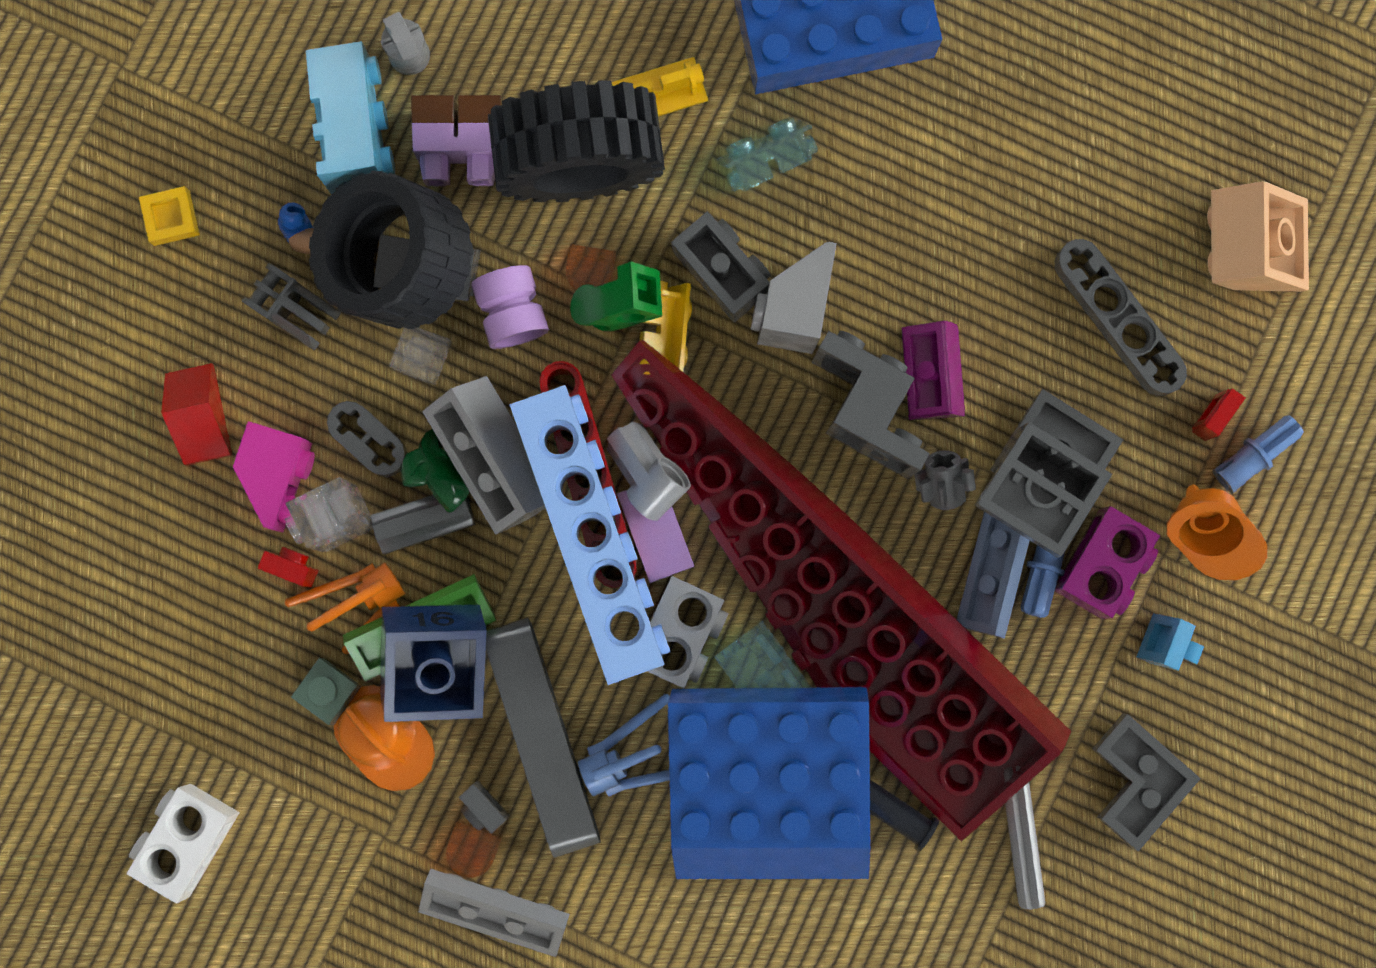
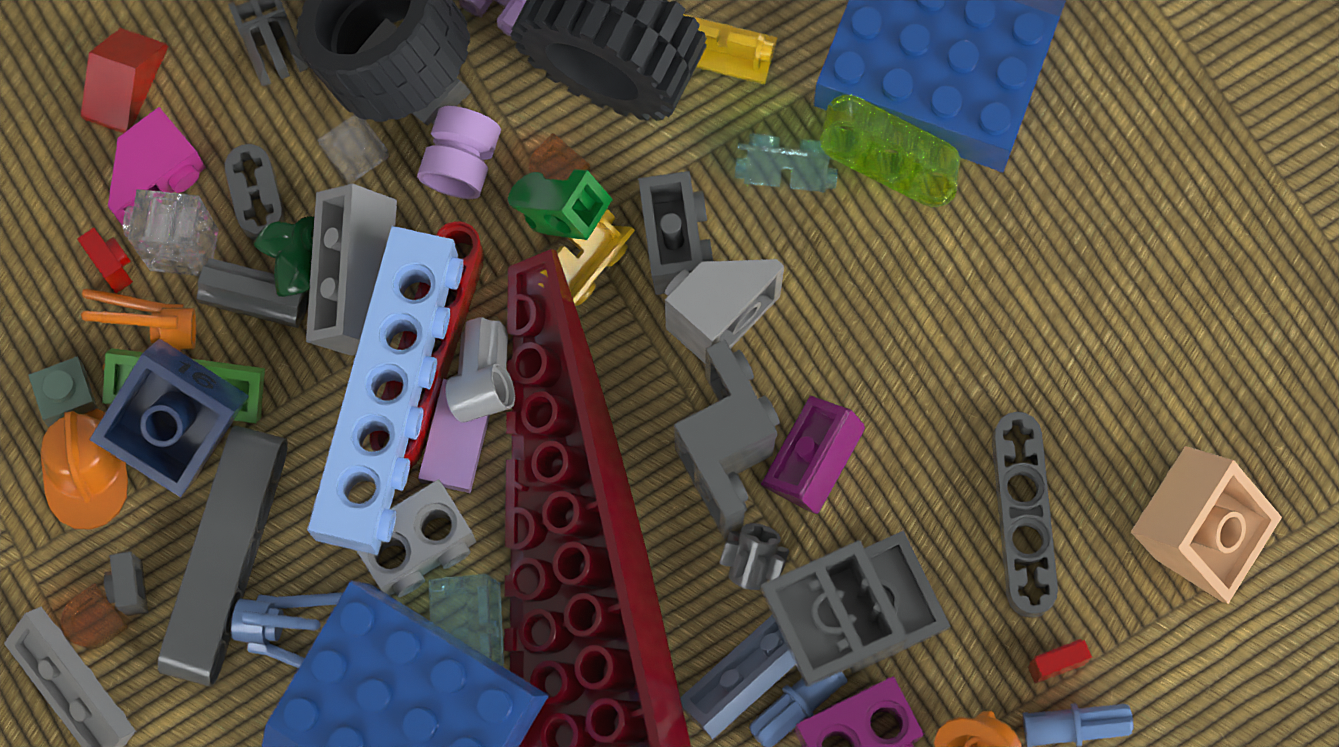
camera: 40 degrees right, 10 degrees down
(847, 95) = (902, 171): none -> clear neon green beam

